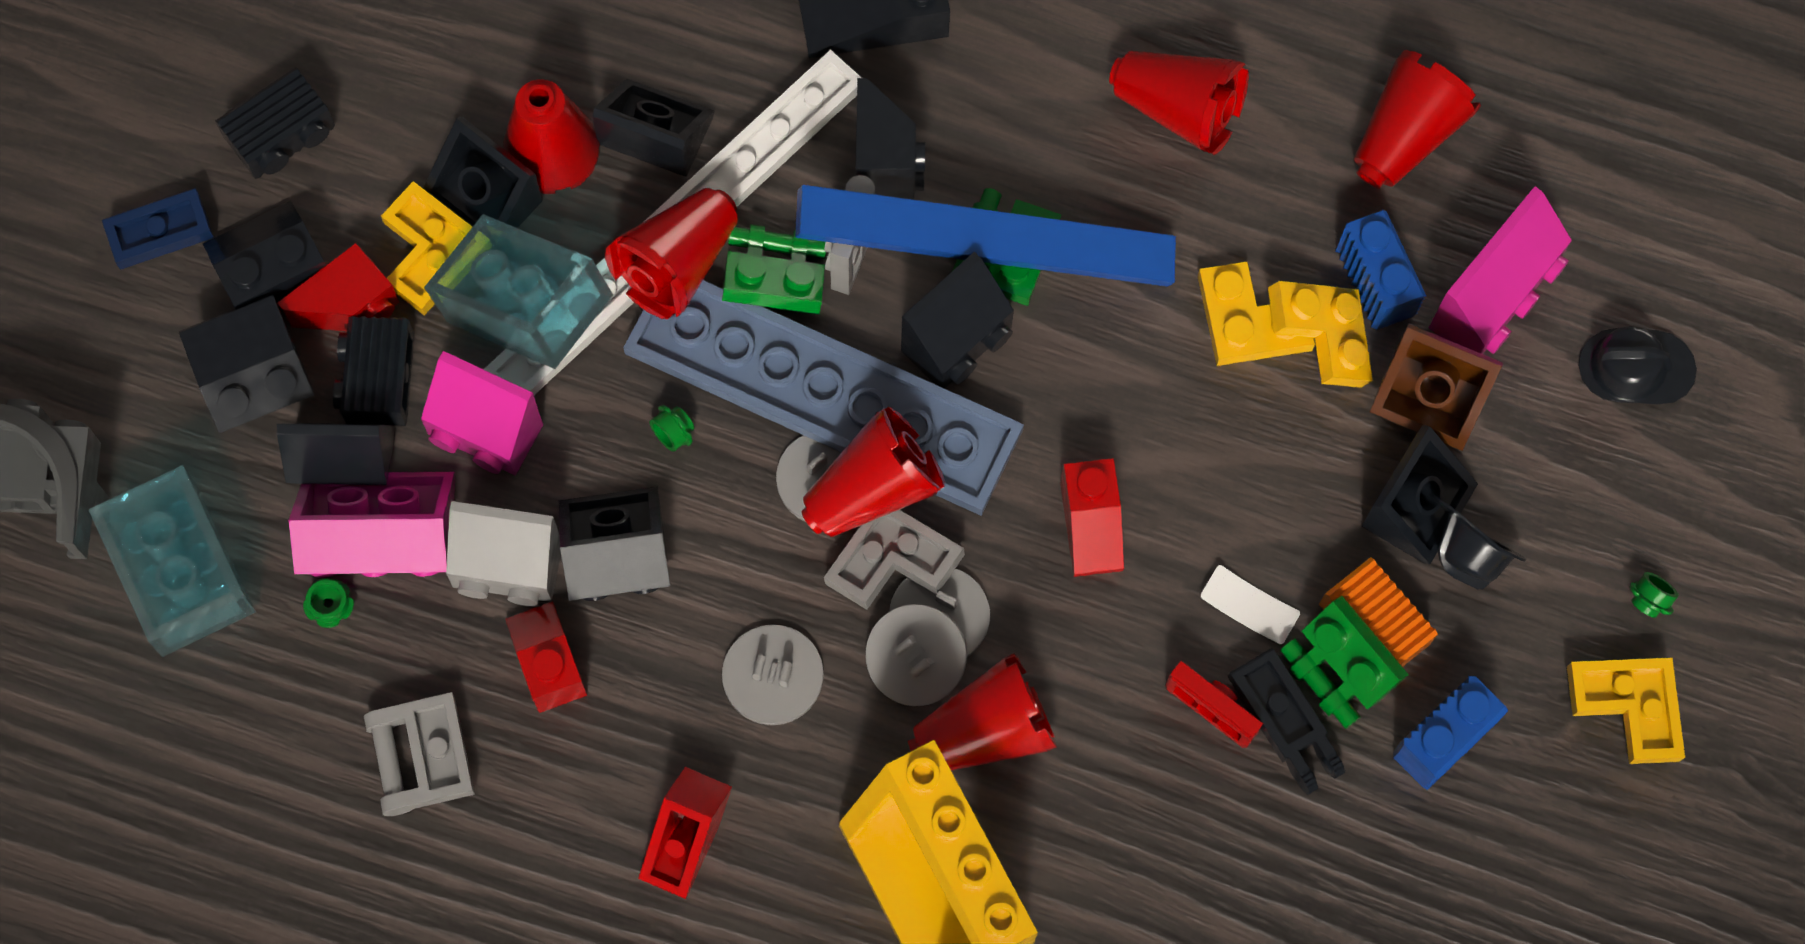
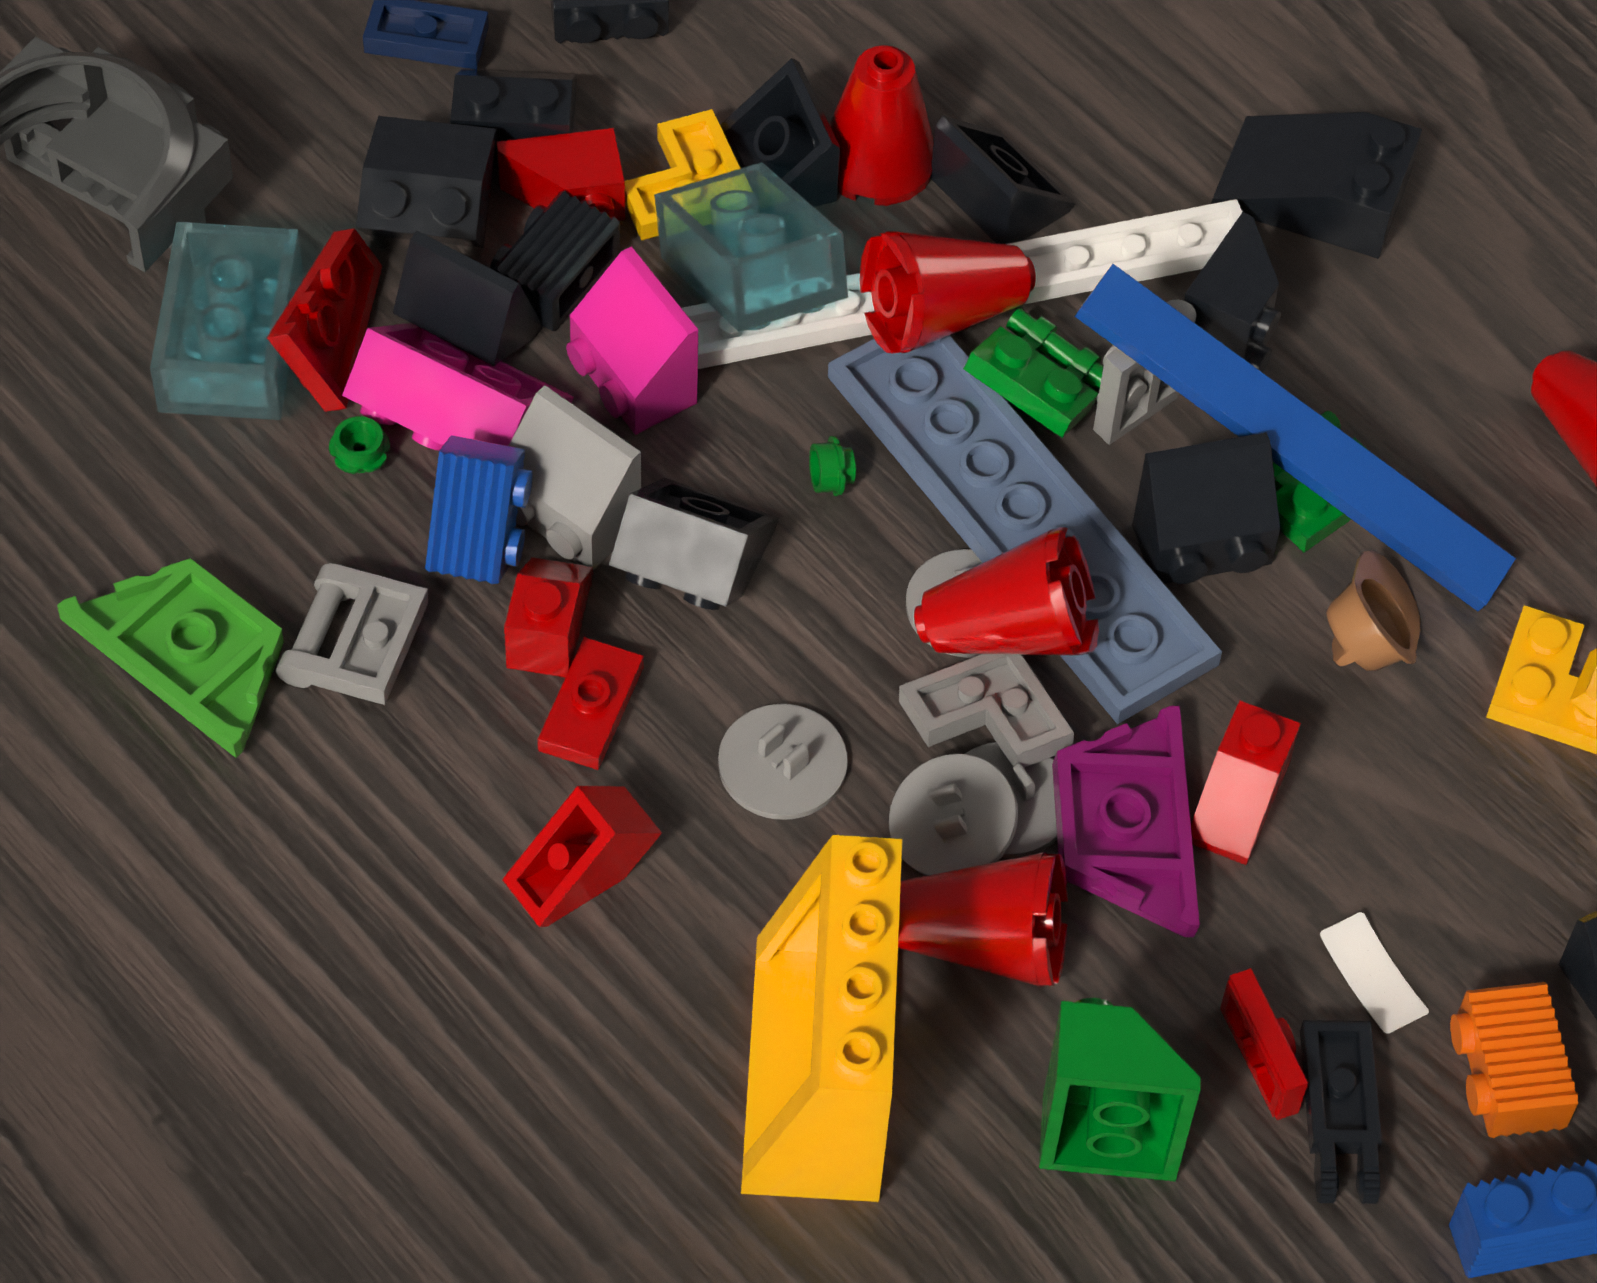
camera: 30 degrees right, 15 degrees down
(244, 517) = (329, 318): none -> red wing
(307, 832) = (187, 645): none -> bright green wing
(452, 615) = (477, 510): none -> blue brick
(616, 709) = (590, 703): none -> red plate
(1033, 588) = (1129, 821): none -> magenta wing
(1110, 338) = (1374, 617): none -> medium nougat piece
(1149, 814) = (1114, 1095): none -> green slope
(1353, 654) = (1463, 1073): green plate -> none

